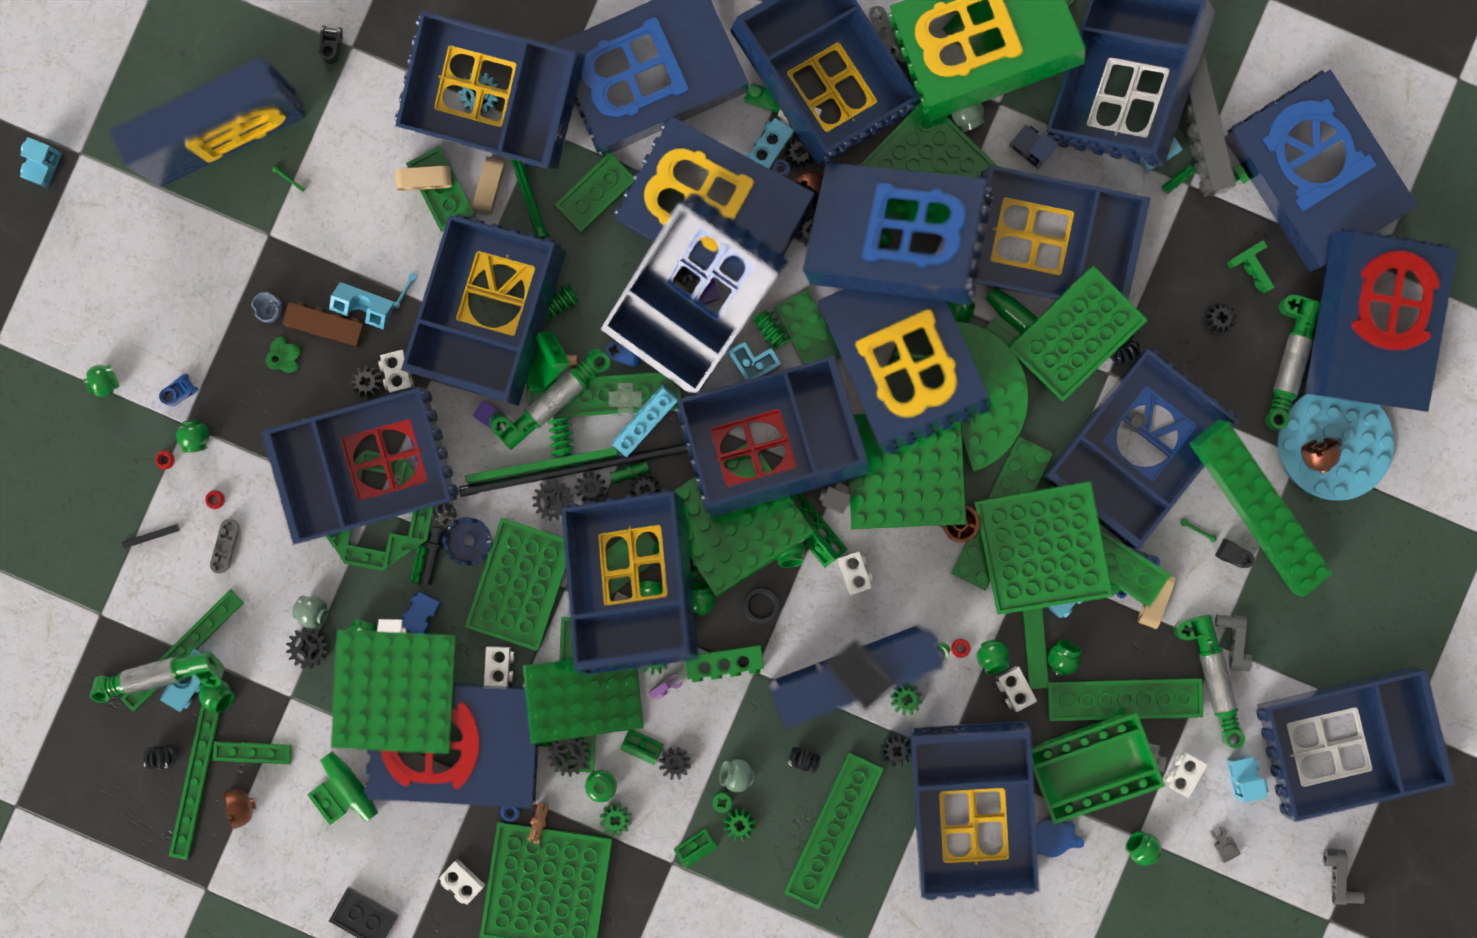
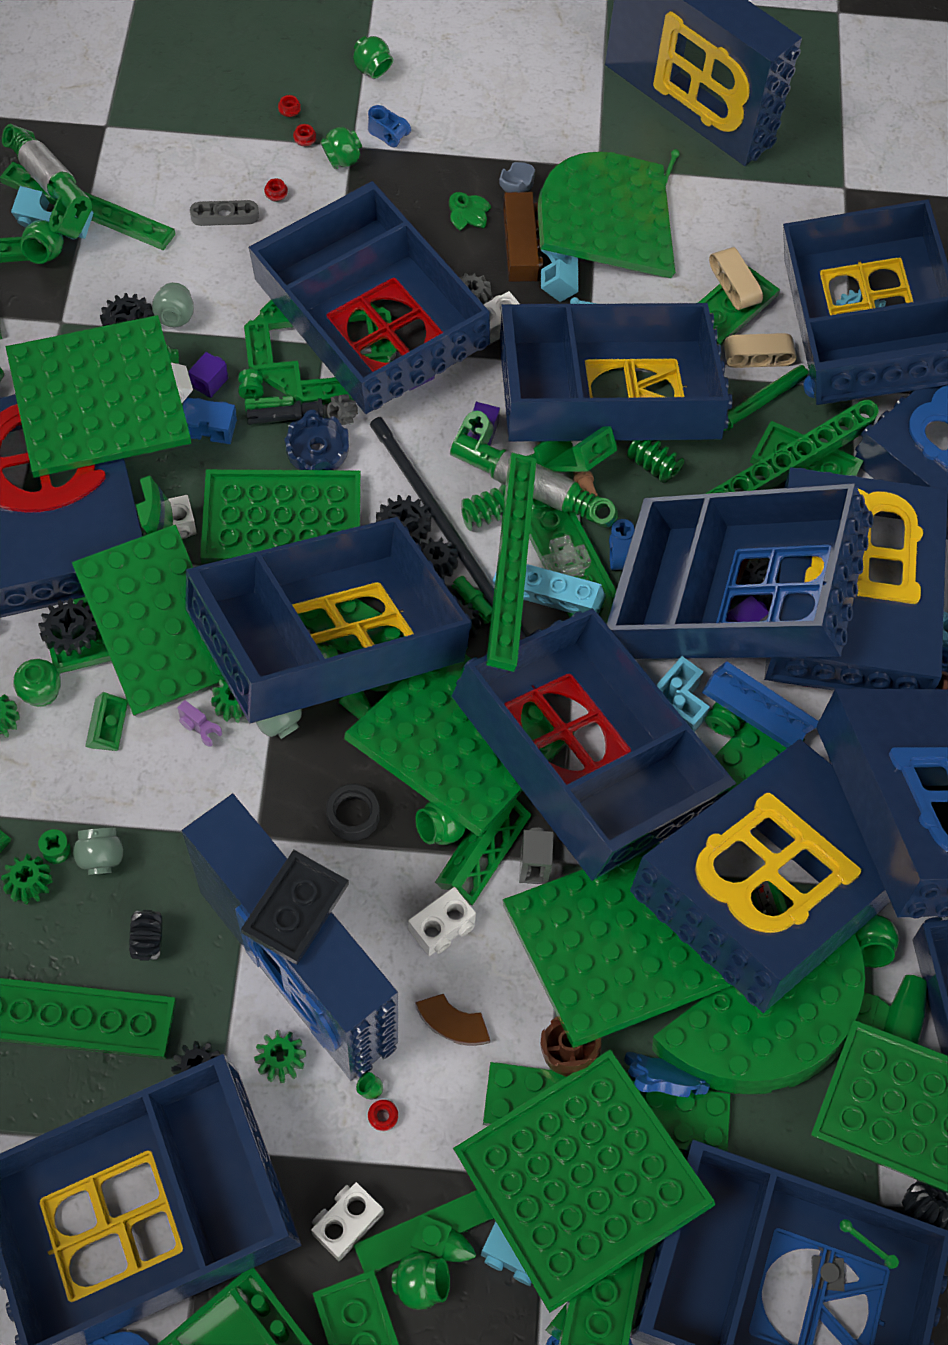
camera: 70 degrees right, 25 degrees down
(124, 463) = (289, 106): none -> red plate
(150, 536) = (212, 145): black bar -> none
(327, 250) = (608, 212): none -> green plate
(330, 40) = (836, 162): black piece -> none
(379, 601) = (208, 374): none -> dark purple brick
(398, 573) = (250, 384): none -> green wheel
(508, 674) = (156, 510): none -> green slope
(535, 466) = (443, 496): green tile -> none
(598, 206) = (808, 443): none -> green beam
(630, 444) = (512, 563): none -> green plate
(667, 763) = (92, 759): black gear -> none
(703, 598) = (331, 725): green piece -> none
(753, 653) = (243, 749): green brick -> none
(783, 316) = (758, 707): none -> blue fence
(918, 588) = (451, 1023): none -> reddish brown tile
(993, 657) = (385, 1165): green piece -> none
(997, 475) = (661, 1076): none -> blue tile
(1045, 638) = (441, 1241): none -> green plate
(1124, 408) = (890, 1261): none -> green hinge

